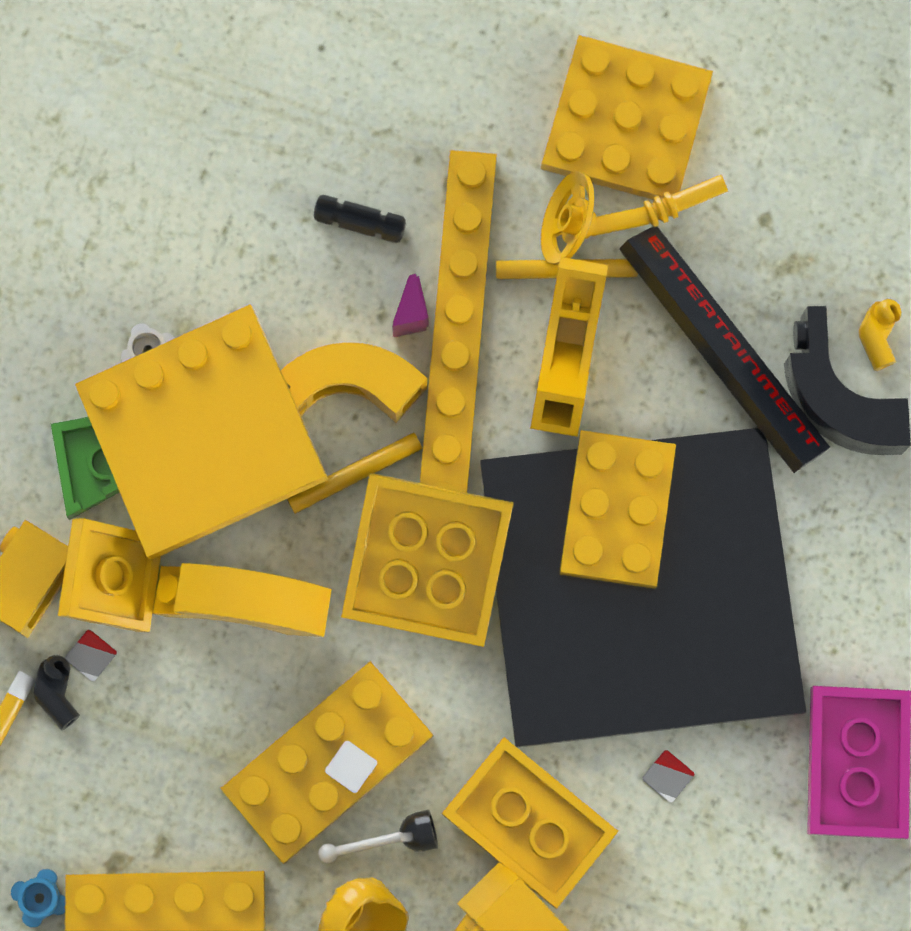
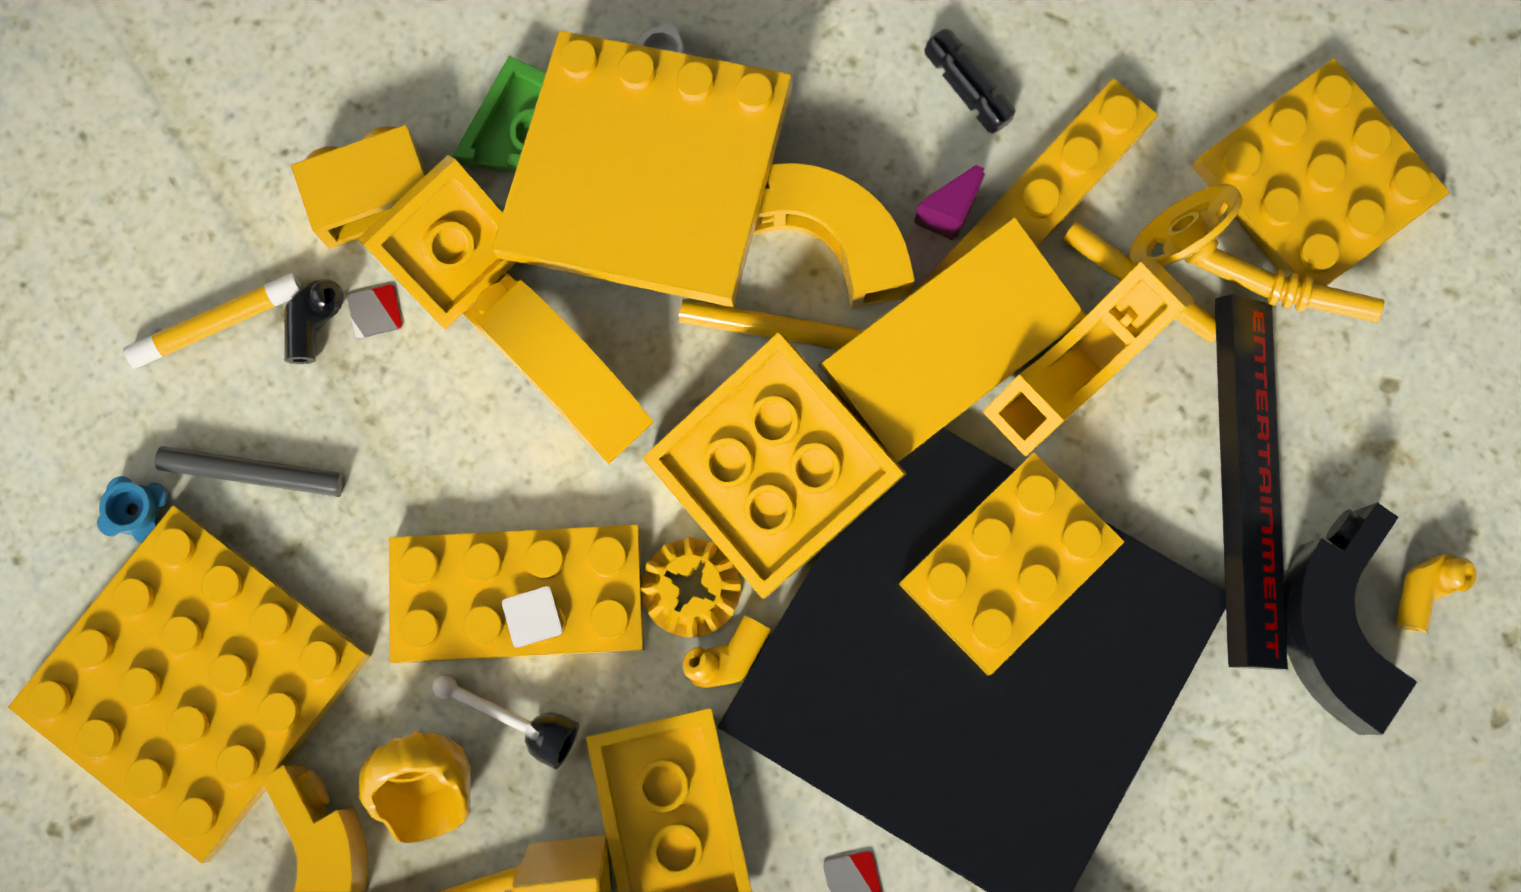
camera: 40 degrees right, 0 degrees up
(95, 817) = (249, 471): none -> dark grey bar
(418, 692) = (699, 615): none -> yellow gear
(478, 397) = (953, 340): none -> yellow tile
(492, 702) = (728, 662): none -> yellow arm

